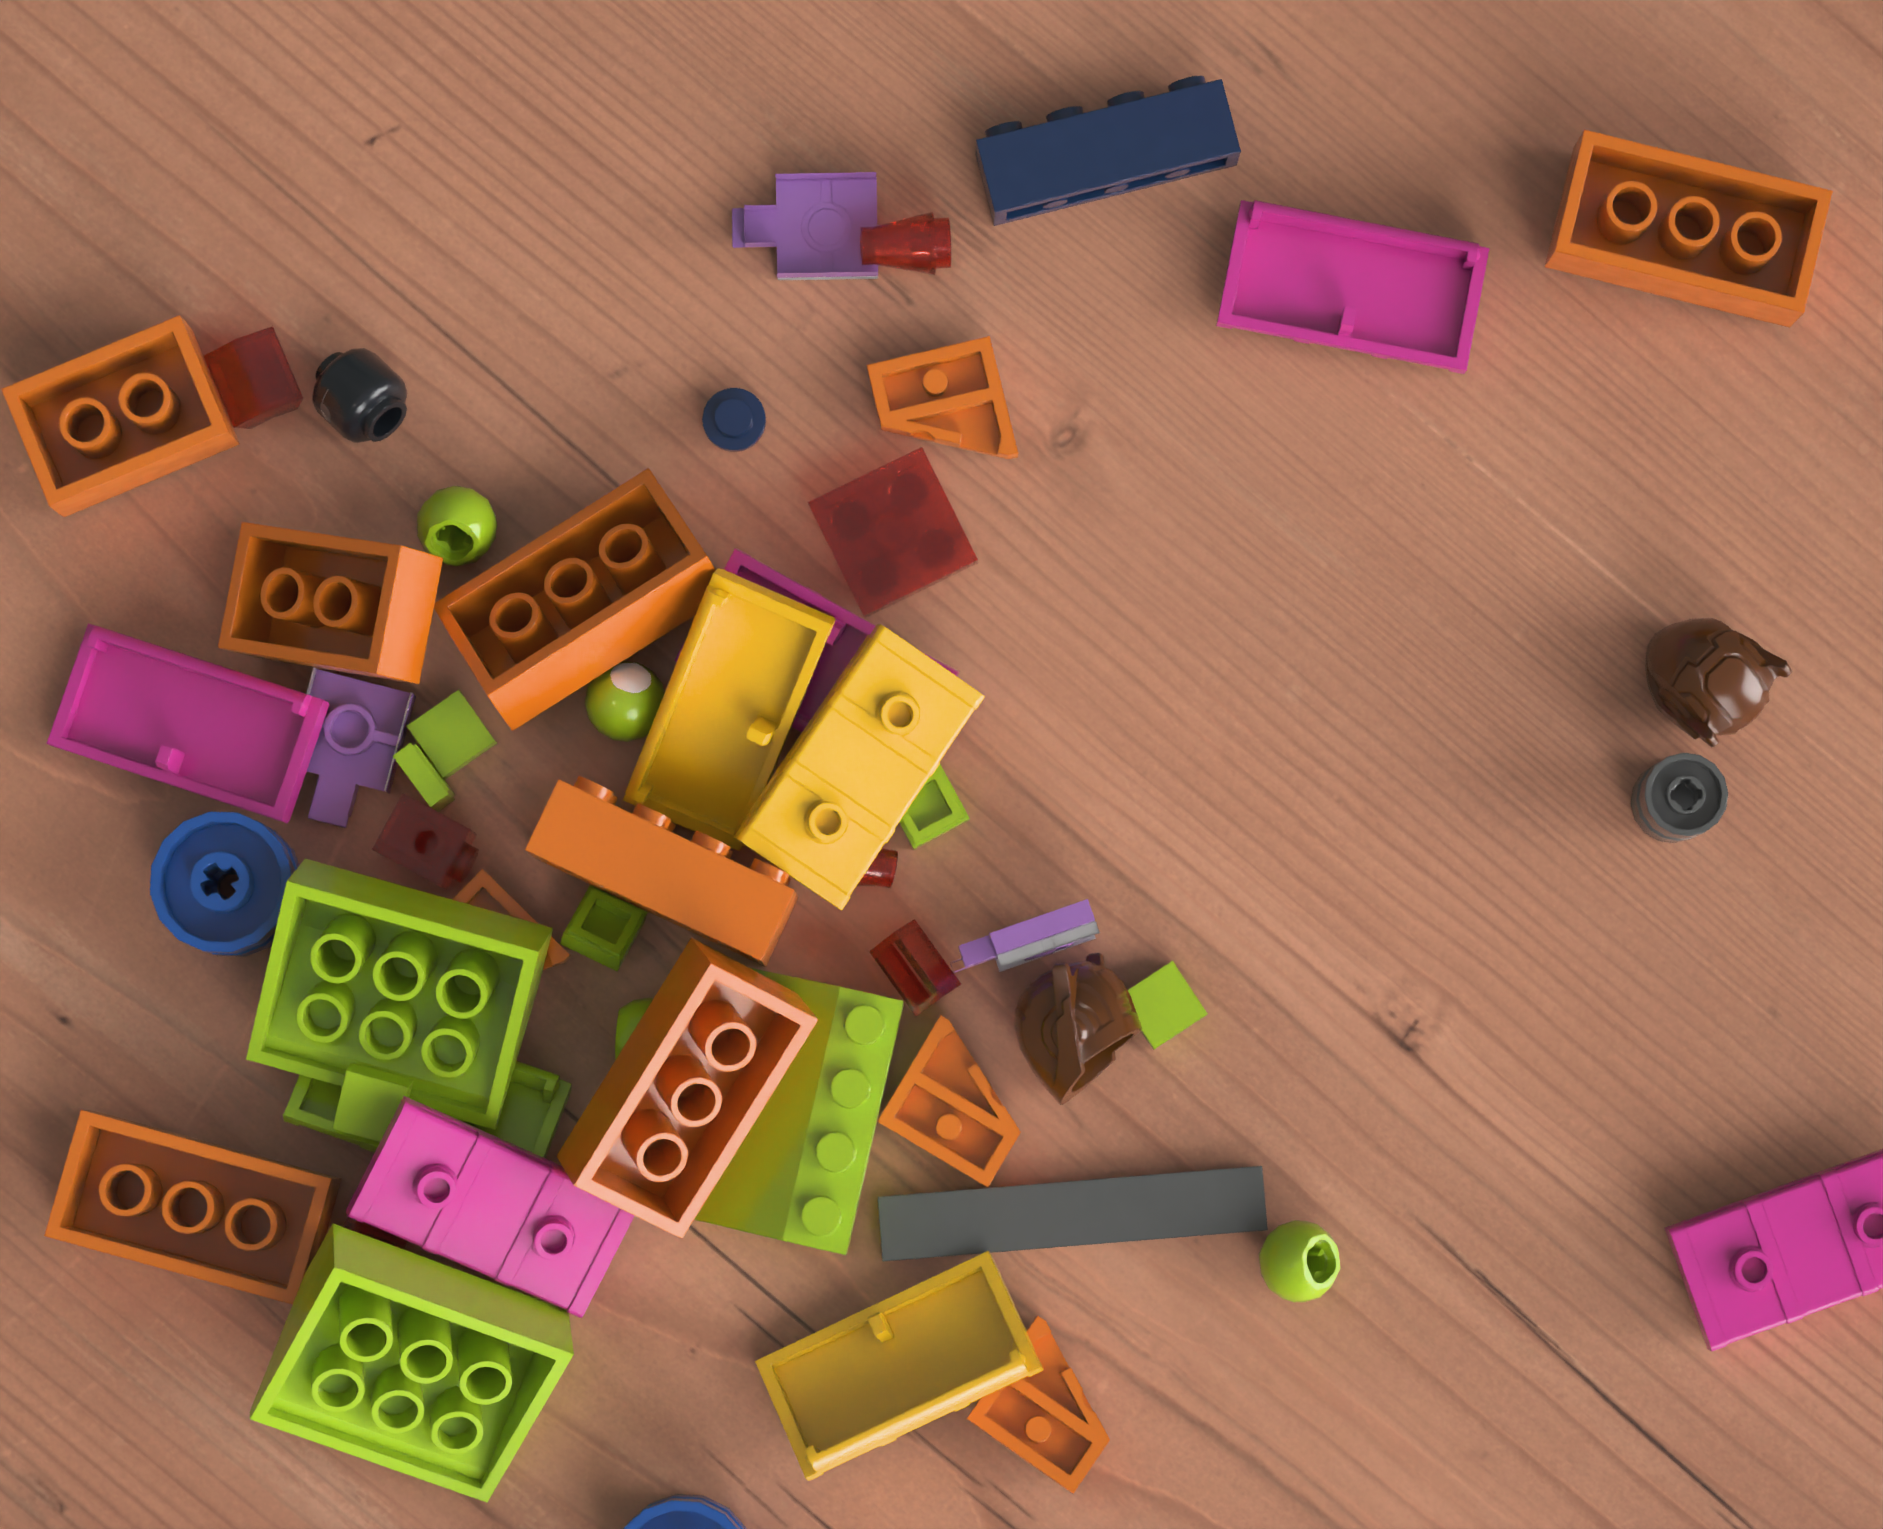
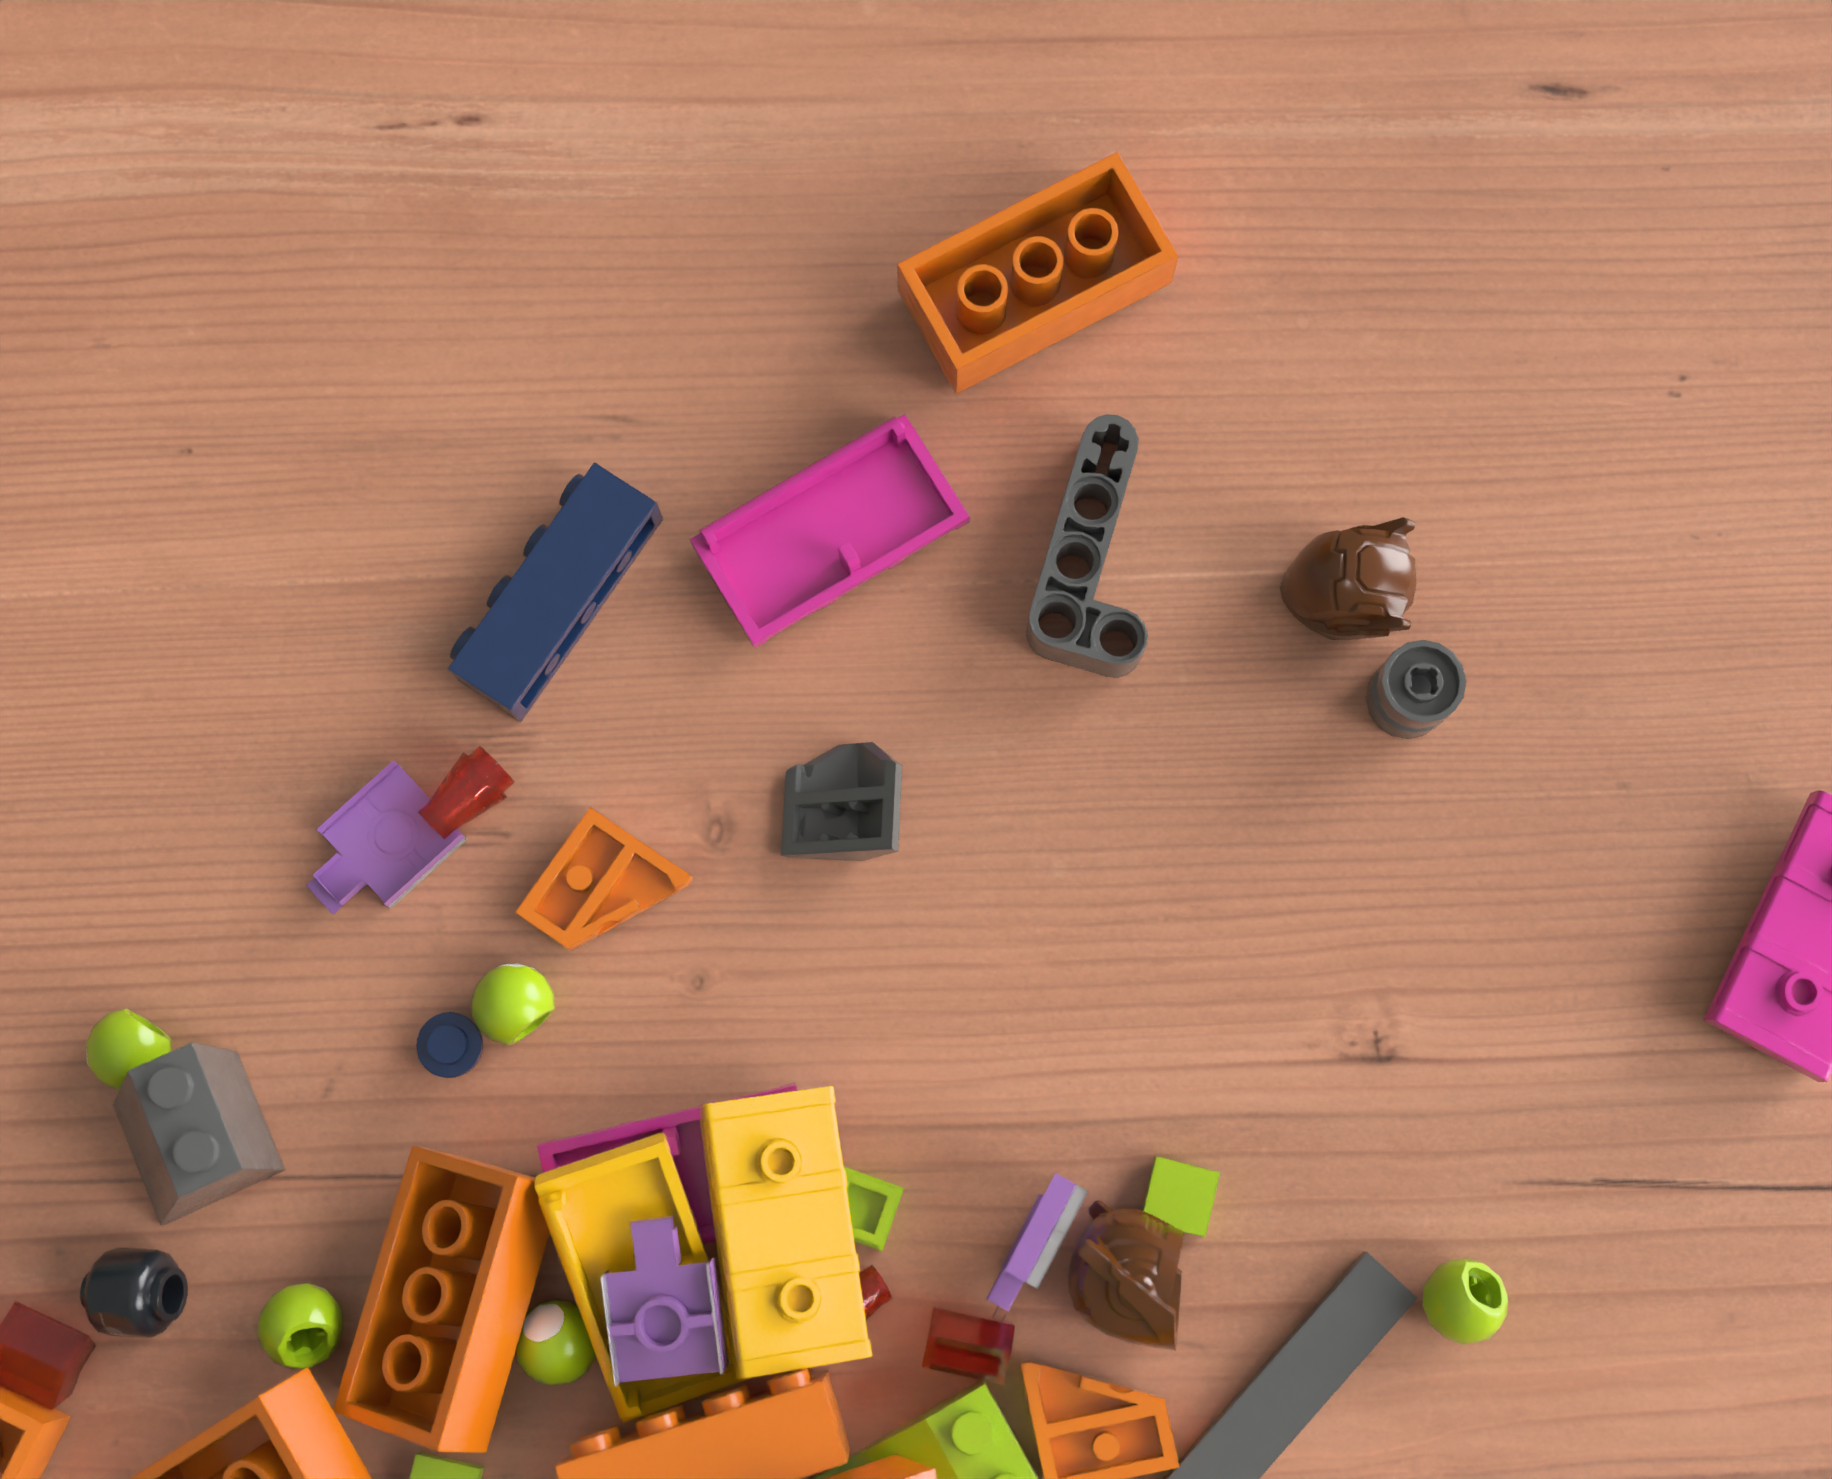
camera: 40 degrees left, 5 degrees down
(499, 316) = (194, 1129): none -> dark grey slope
(501, 216) = (123, 1043): none -> lime piece
(721, 744) = (663, 1314): none -> medium lavender piece
(806, 429) = (511, 1003): none -> lime piece
(893, 532) = (649, 1021): clear red plate -> none
(1175, 501) = (843, 805): none -> dark grey slope
(1541, 473) = (1090, 542): none -> dark grey beam

